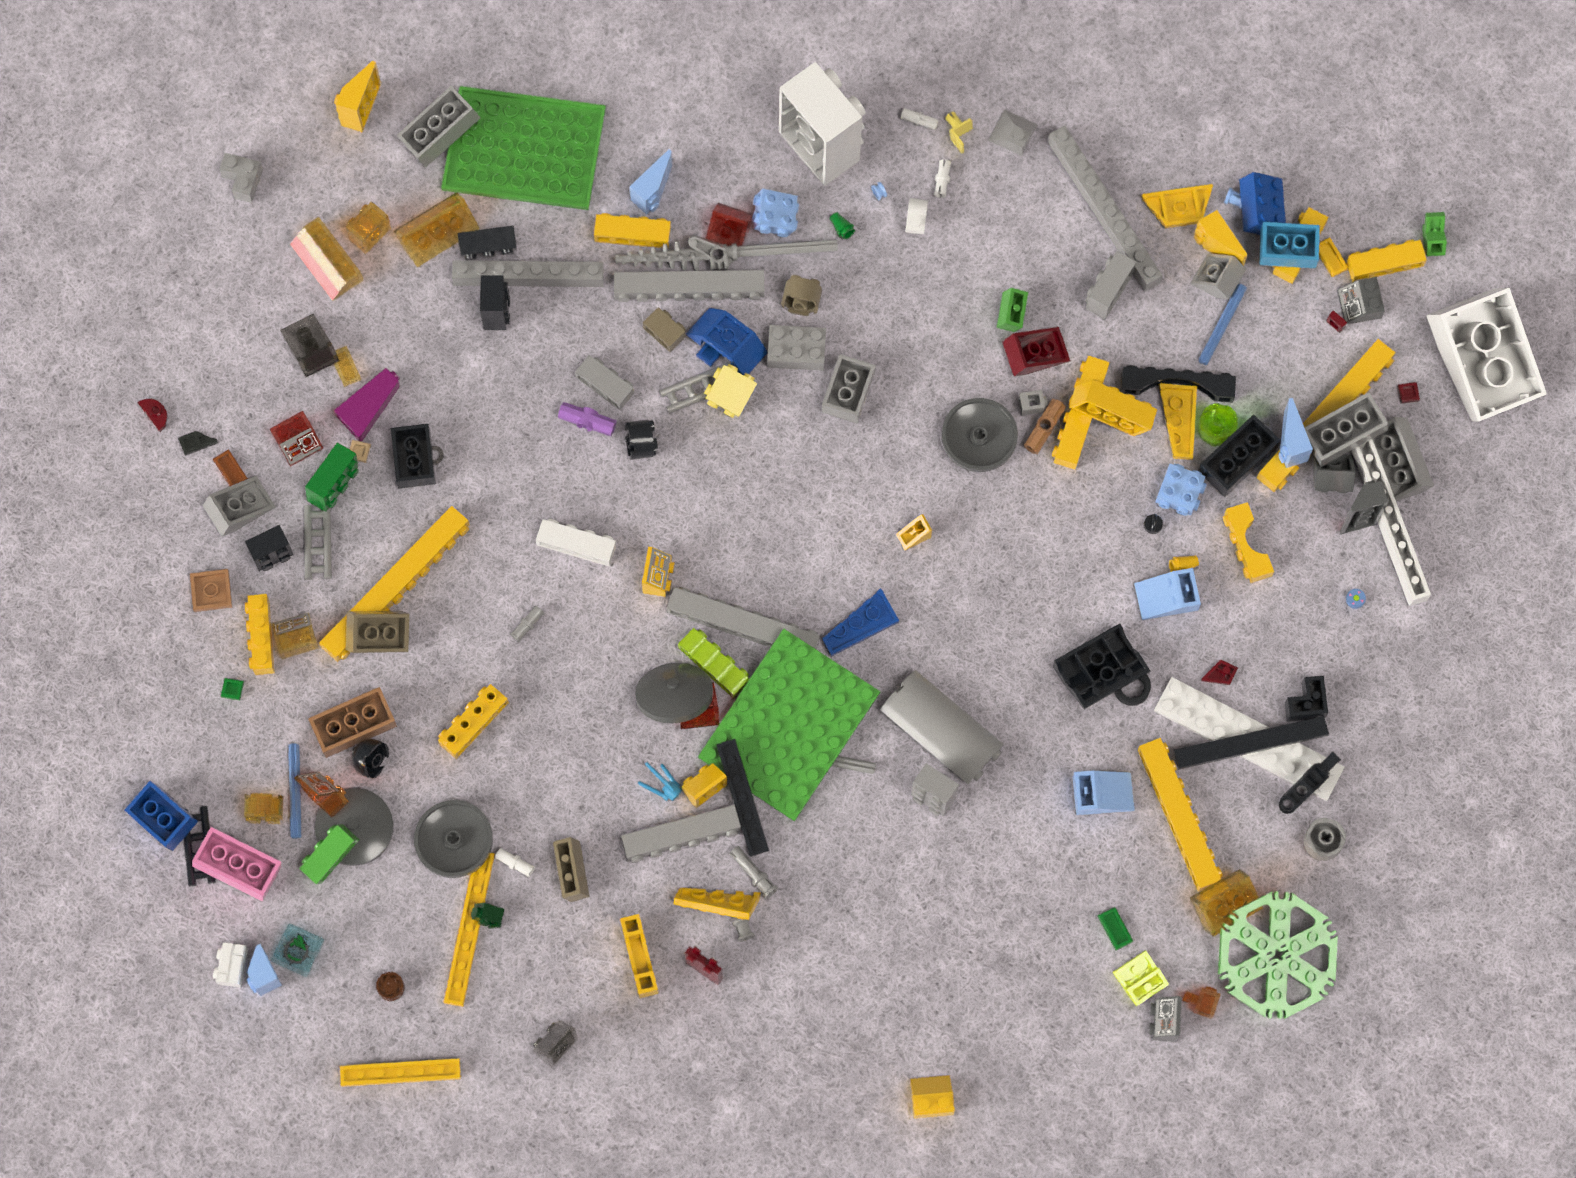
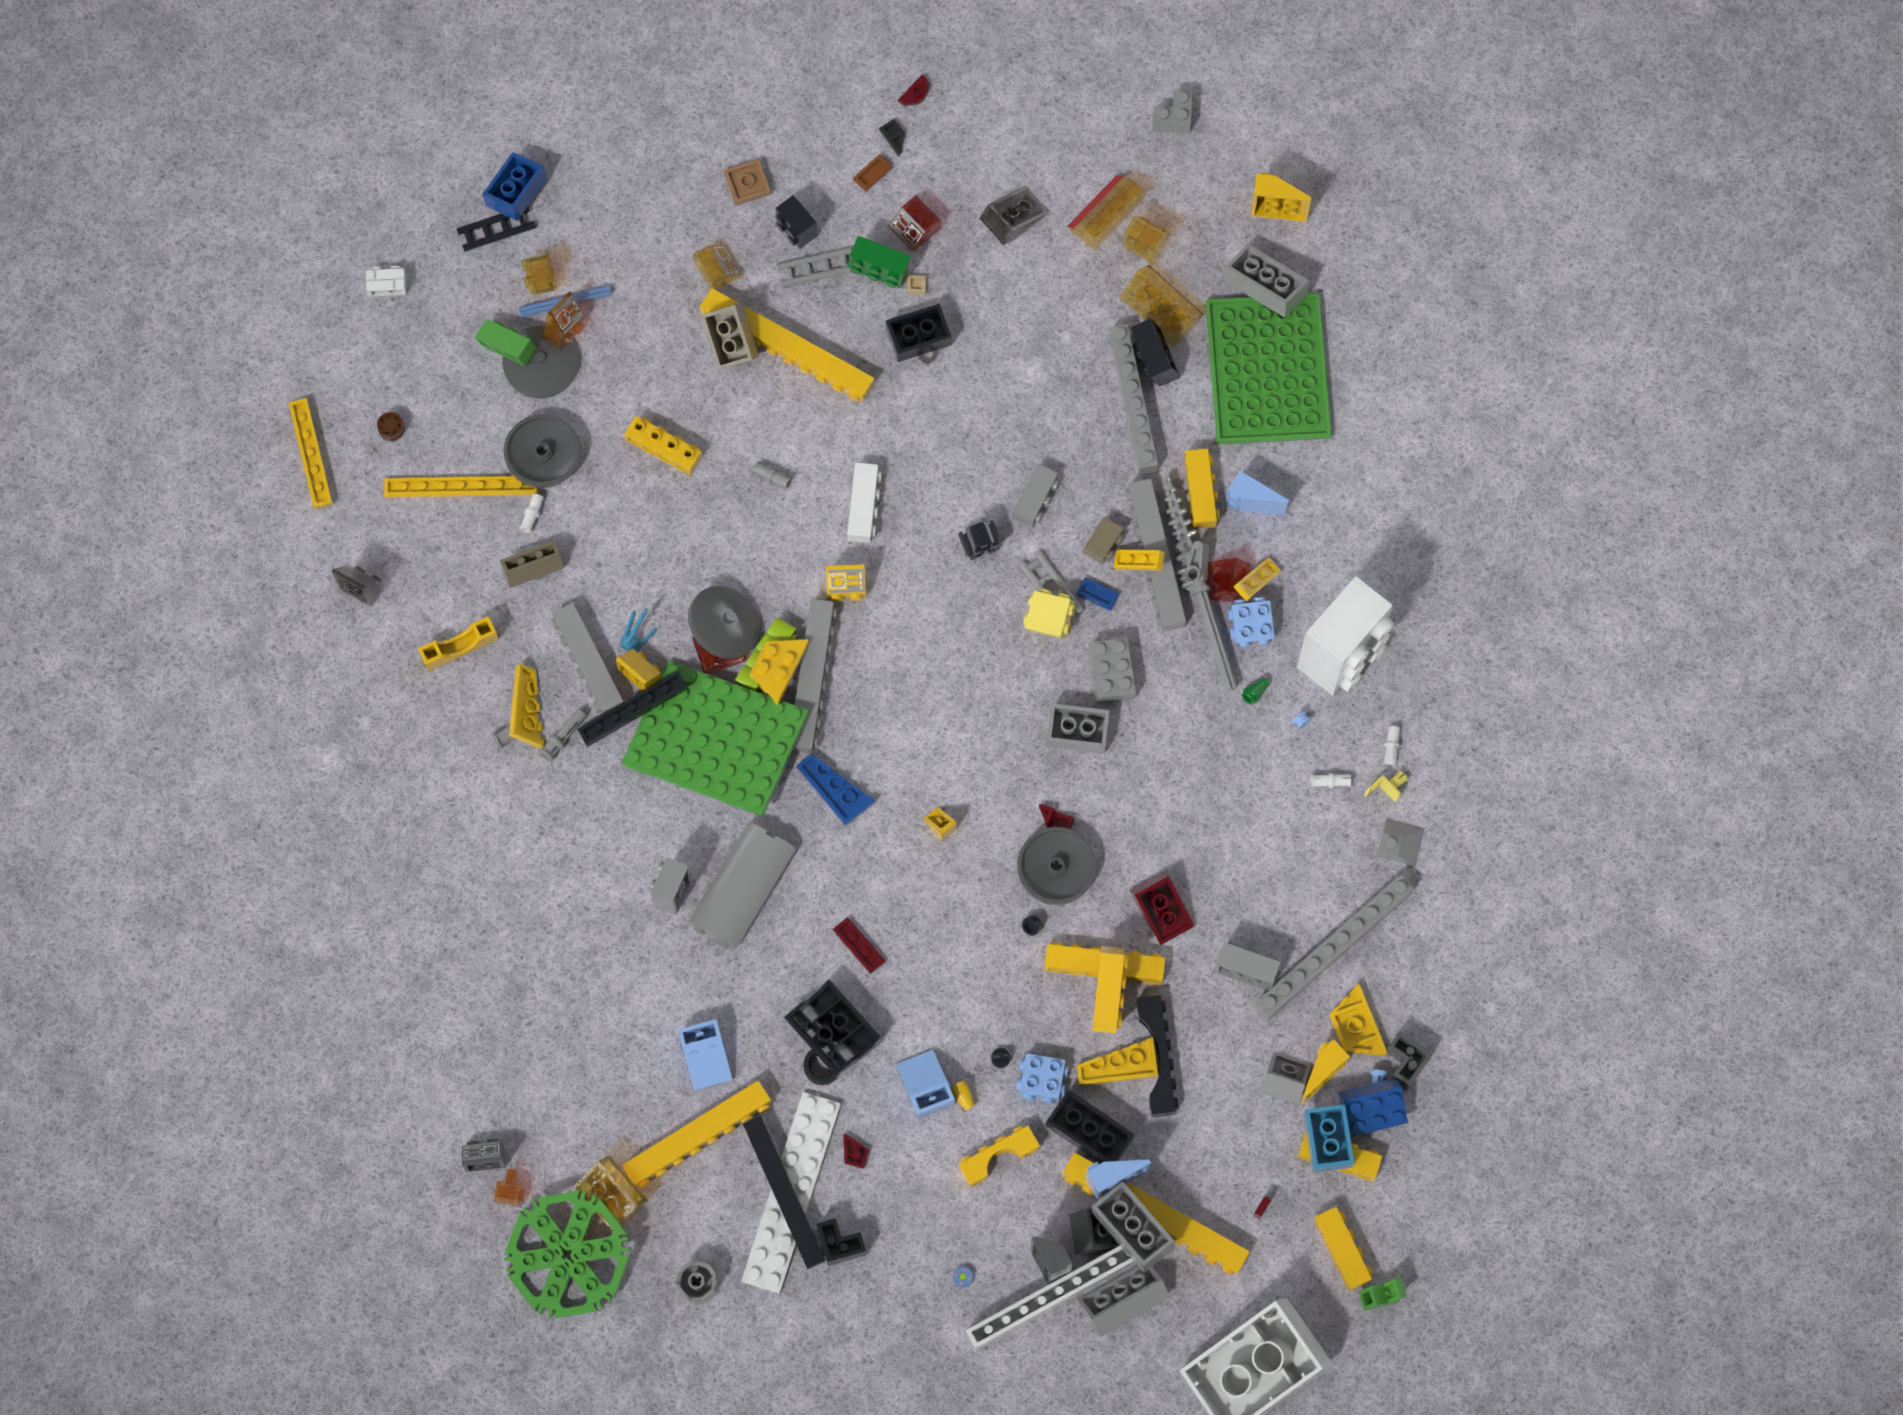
camera: 80 degrees right, 0 degrees up
(232, 689) = (654, 223): green tile -> none
(236, 864) = (480, 262): bright pink brick -> none
(238, 505) = (837, 187): light grey slope -> none
(260, 633) = (714, 233): yellow brick -> none
(261, 973) = (382, 308): light blue slope -> none
(297, 950) = (411, 337): clear light blue slope -> none
(346, 367) = (1000, 254): clear yellow tile -> none
(364, 727) = (650, 335): medium nougat brick -> none
(368, 403) = (965, 281): magenta slope -> none
(368, 757) = (606, 355): black cylinder -> none
(488, 915) = (473, 497): dark green brick -> none
(494, 302) = (1089, 370): black brick -> none
(587, 418) = (993, 487): medium lavender piece -> none
(694, 298) = (1139, 560): none -> yellow plate
(703, 965) = (454, 700): dark red tile -> none
(729, 338) = (1103, 603): blue slope -> none
(731, 649) = (777, 666): none -> yellow wing
(735, 198) = (1257, 579): none -> yellow plate
(802, 295) = (1167, 664): dark tan brick -> none
(854, 764) = (689, 812): light grey axle -> none
(916, 216) = (1283, 759): white brick -> none
(931, 429) = (1054, 818): none -> dark red slope
(932, 1096) = (369, 944): yellow slope -> none
(1012, 310) = (1199, 874): bright green brick -> none
(1019, 632) = (859, 945): none -> dark red tile
(1031, 469) = (1032, 925): none -> black tile
(1033, 396) = (1104, 906): light grey brick -> none
(1039, 435) = (1068, 926): medium nougat piece -> none
(1115, 928) = (569, 1093): green tile -> none
(1140, 978) = (523, 1126): neon yellow slope -> none
(1219, 414) = (1120, 1091): clear neon green brick -> none
(1222, 163) = (1412, 1059): none -> dark grey brick
(1222, 324) = (1235, 1092): medium blue axle -> none
(1312, 780) = (746, 1252): black piece -> none
(1332, 258) = (1335, 1192): yellow tile -> none
(1361, 301) = (1291, 1230): dark grey slope -> none
(1408, 392) = (1201, 1297): dark red tile -> none

